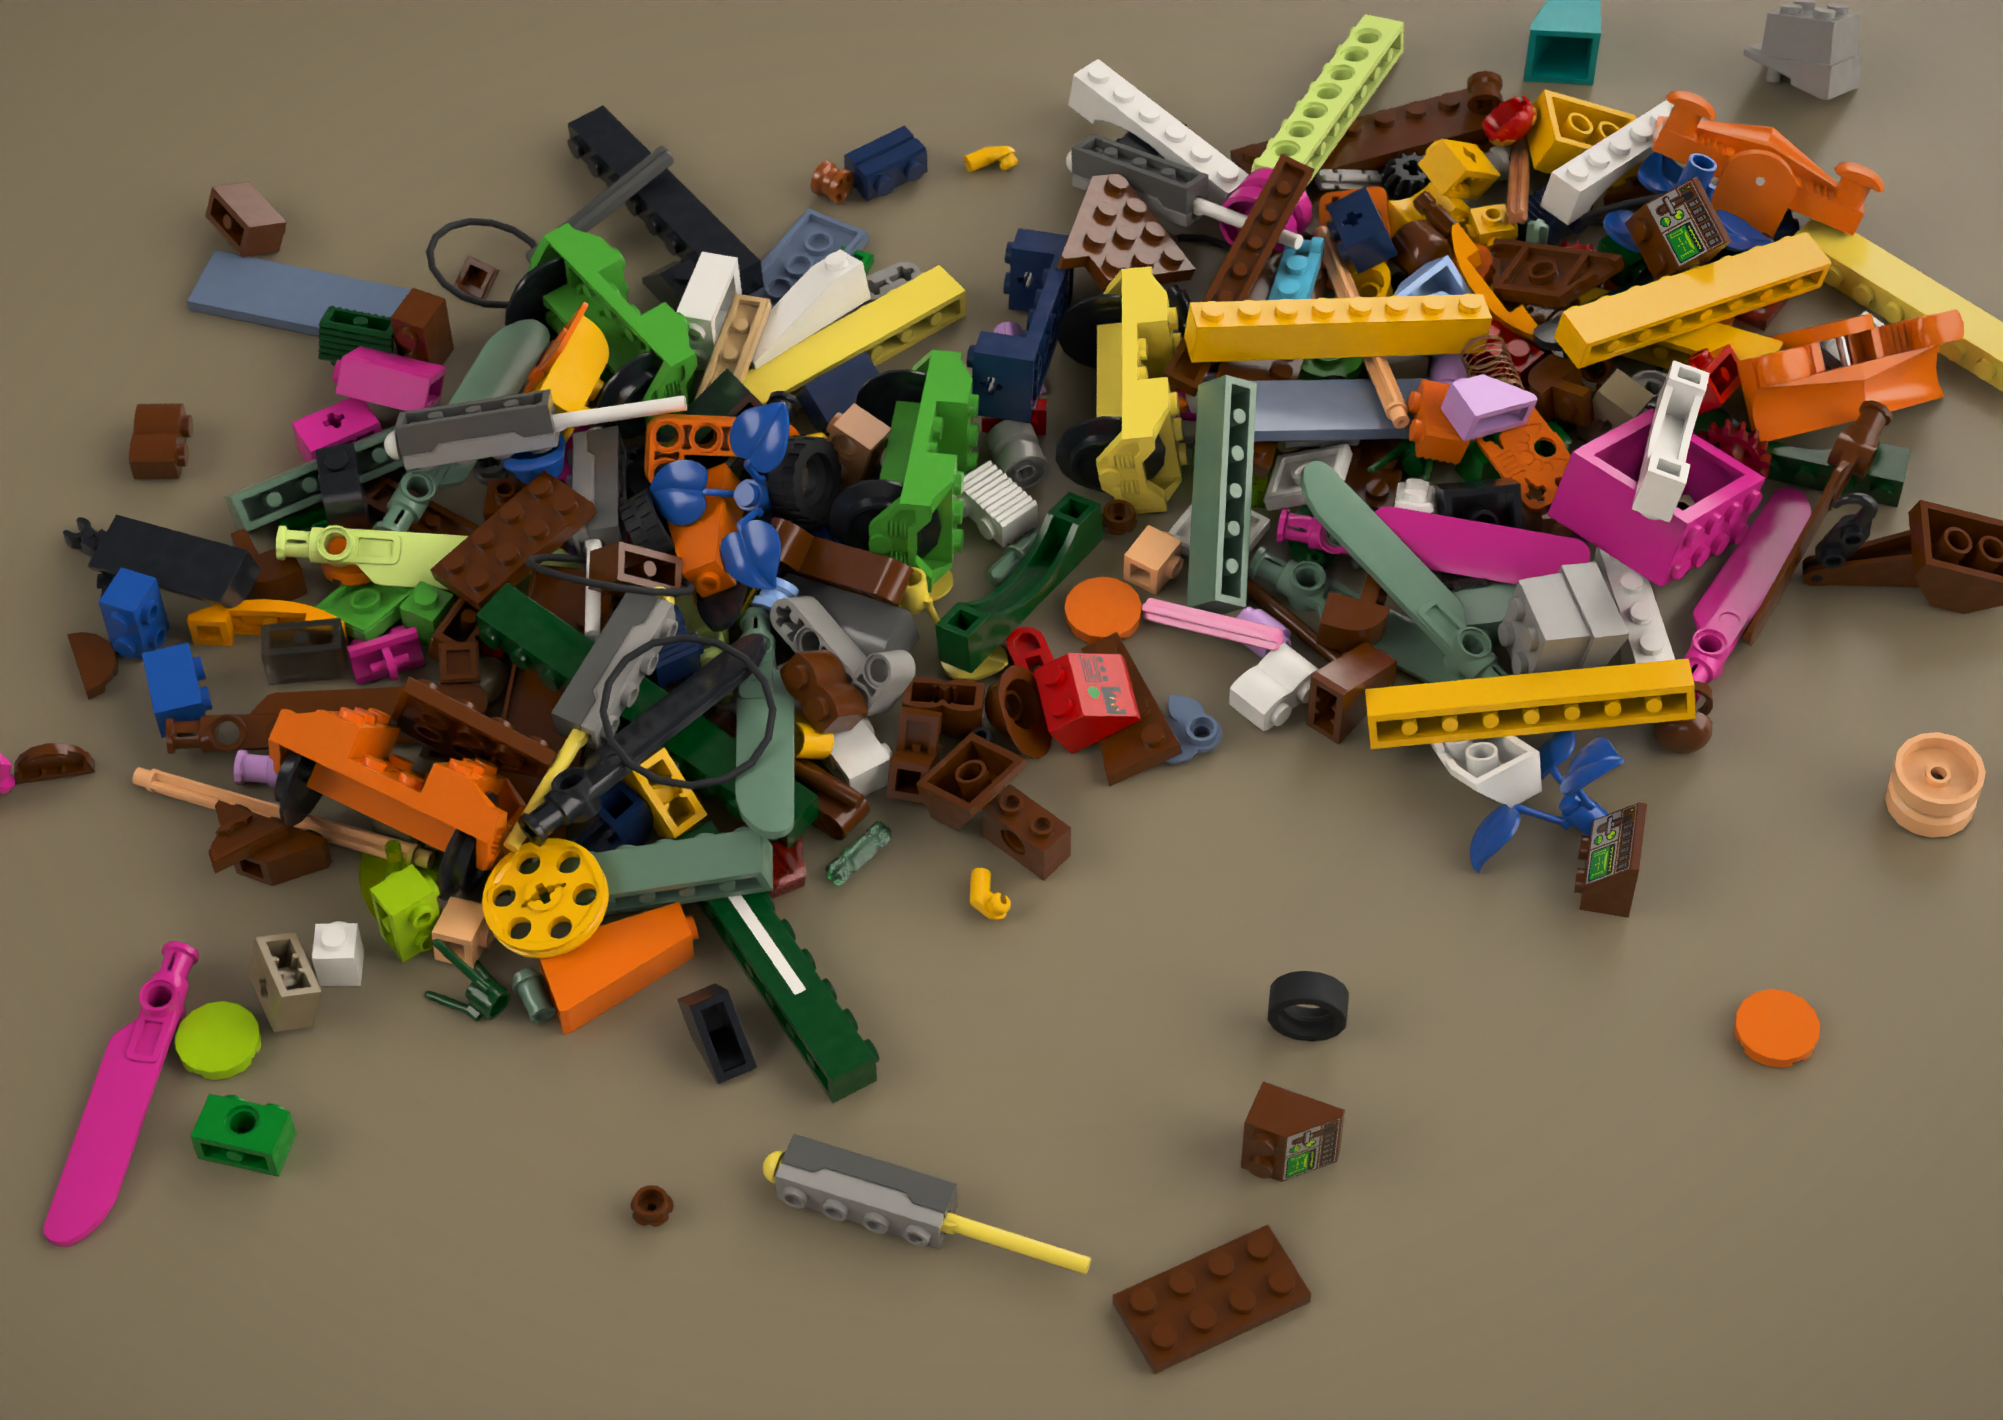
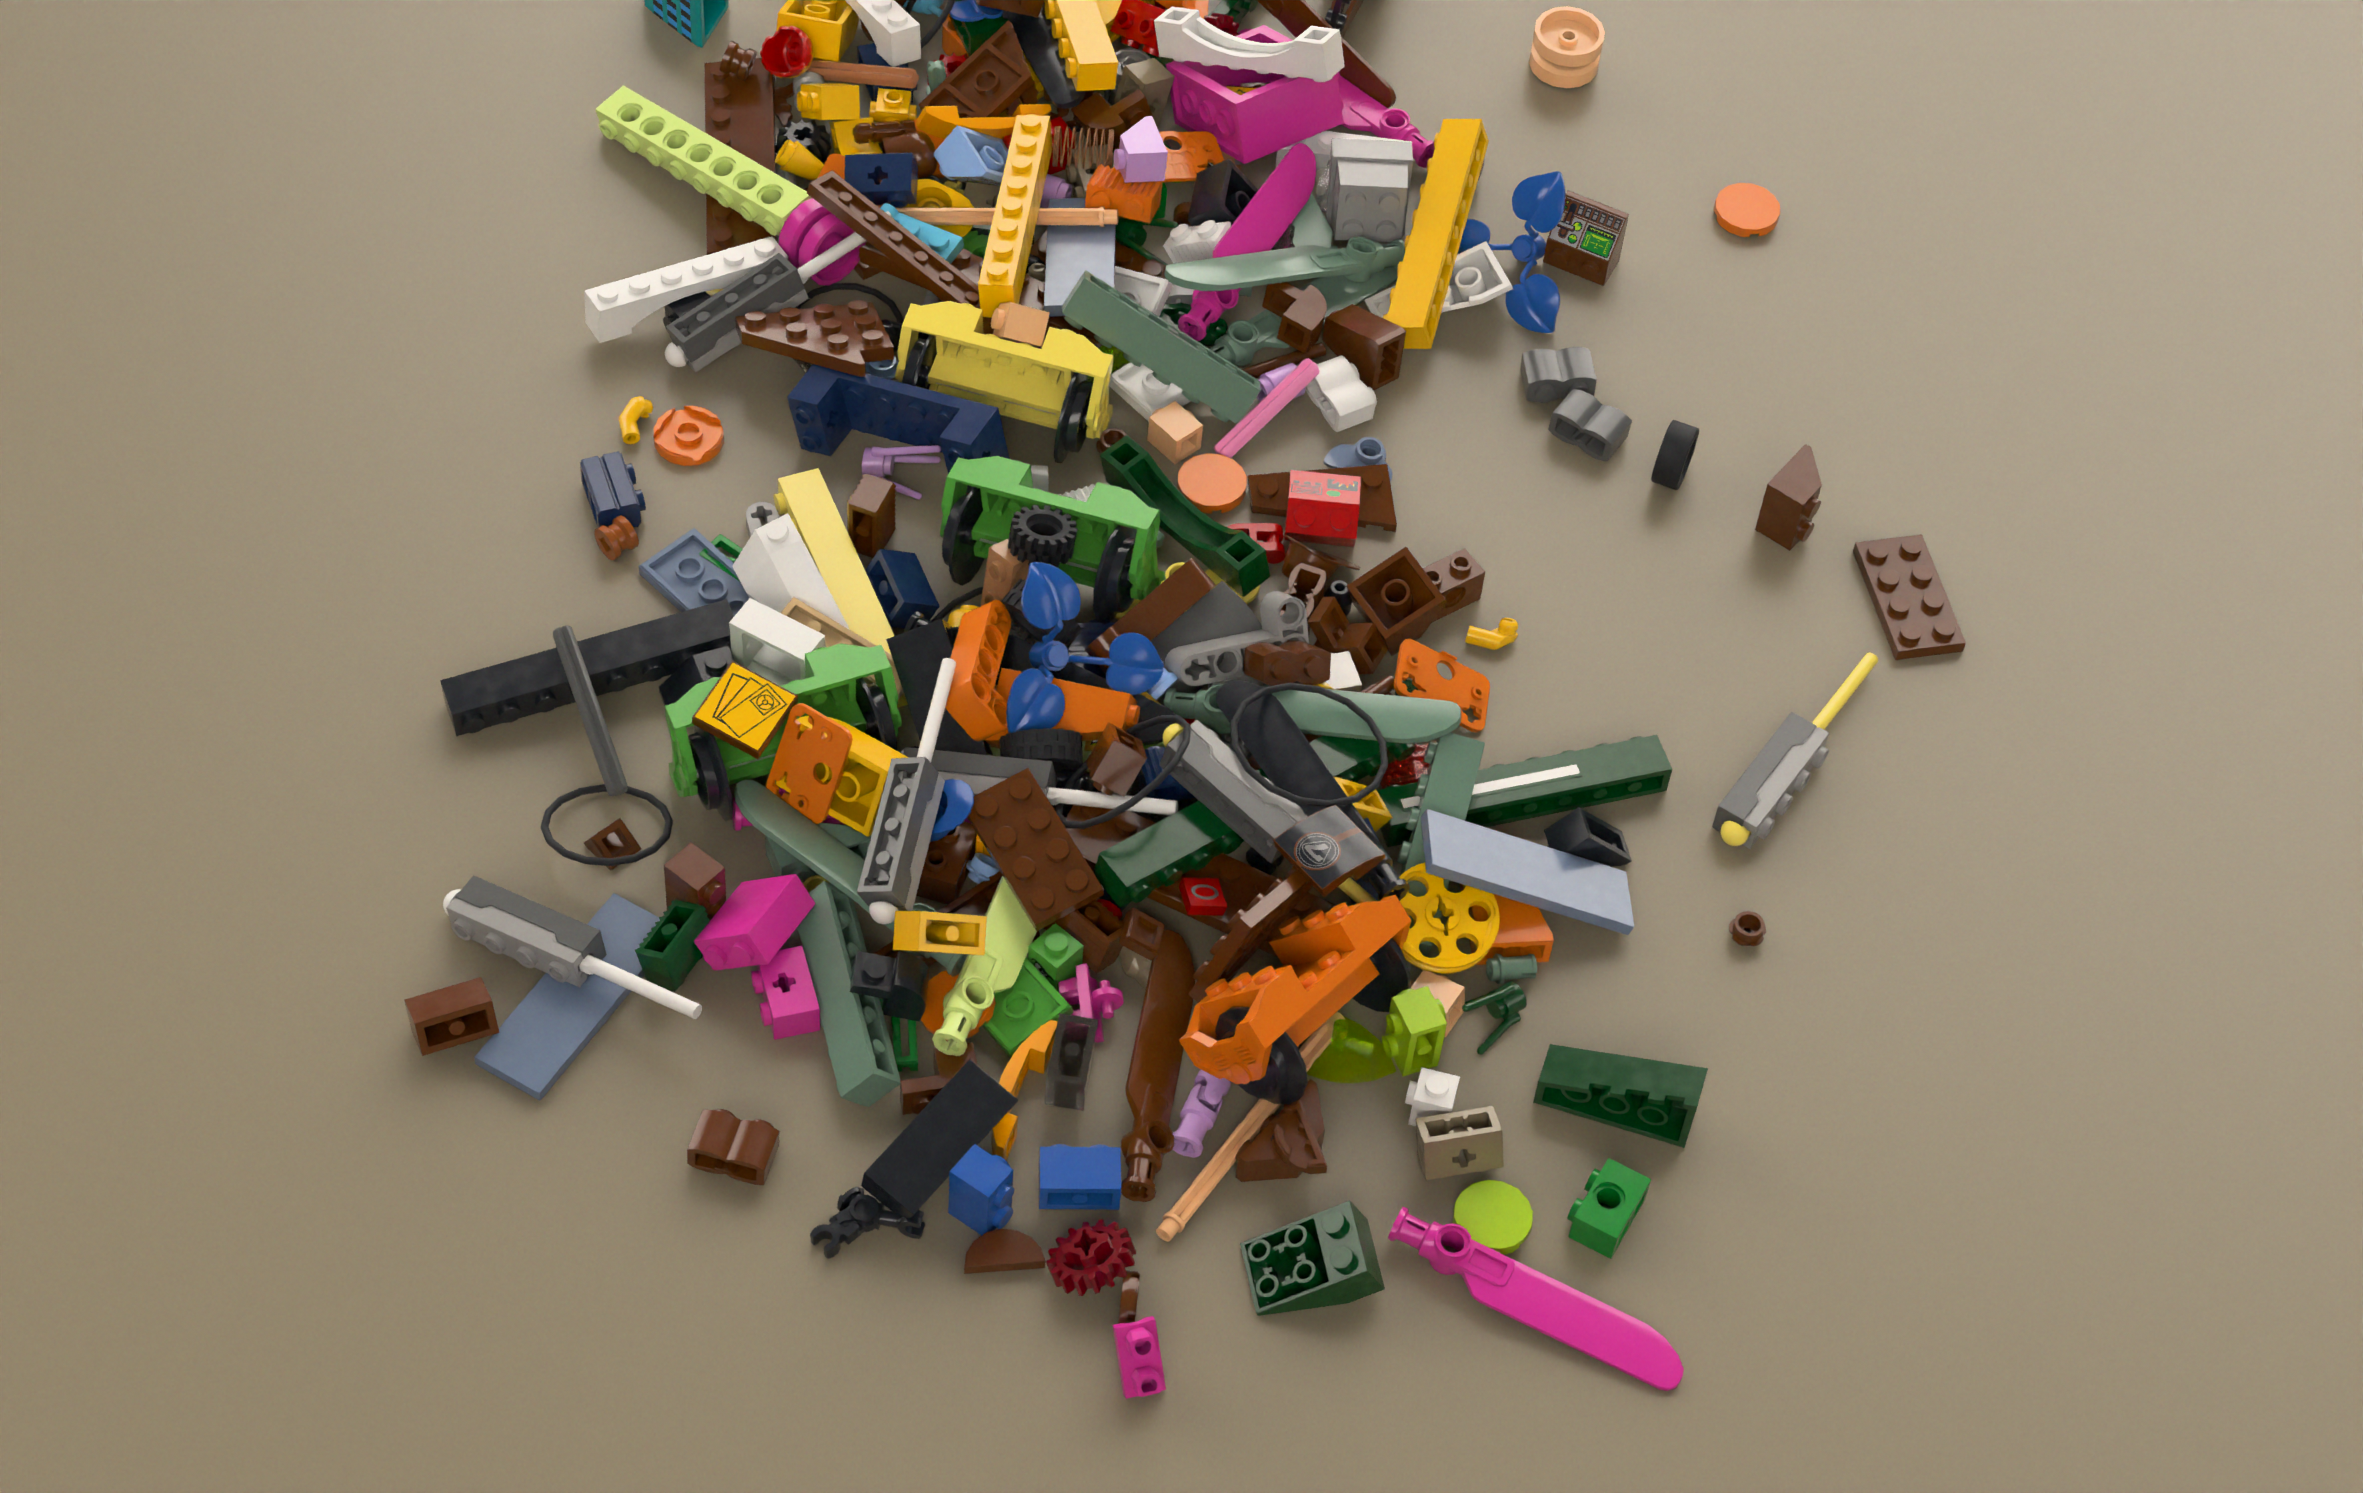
camera: 80 degrees left, 0 degrees up
(88, 718) = (1091, 1257): none -> dark red gear
(126, 899) = (1313, 1262): none -> dark green slope
(338, 253) = (544, 940): none -> piece
(380, 488) = (939, 932): none -> yellow slope
(387, 1118) = (1622, 1091): none -> dark green wedge
(517, 698) = (1203, 896): none -> red tile
(548, 749) = (1328, 849): none -> slope
(575, 273) = (744, 709): none -> yellow tile
(628, 963) = (1526, 872): none -> tile
(871, 451) = (1042, 535): none -> black tyre
(873, 859) = (1465, 687): none -> orange axle
(917, 333) = (871, 514): none -> reddish brown brick
(991, 203) = (688, 436): none -> orange tile
(1169, 355) = (1020, 323): none -> light nougat brick
(1333, 925) = (1590, 425): none -> dark grey brick
(1371, 168) = (798, 160): none -> yellow cone
(1397, 881) = (1554, 374): none -> dark grey brick

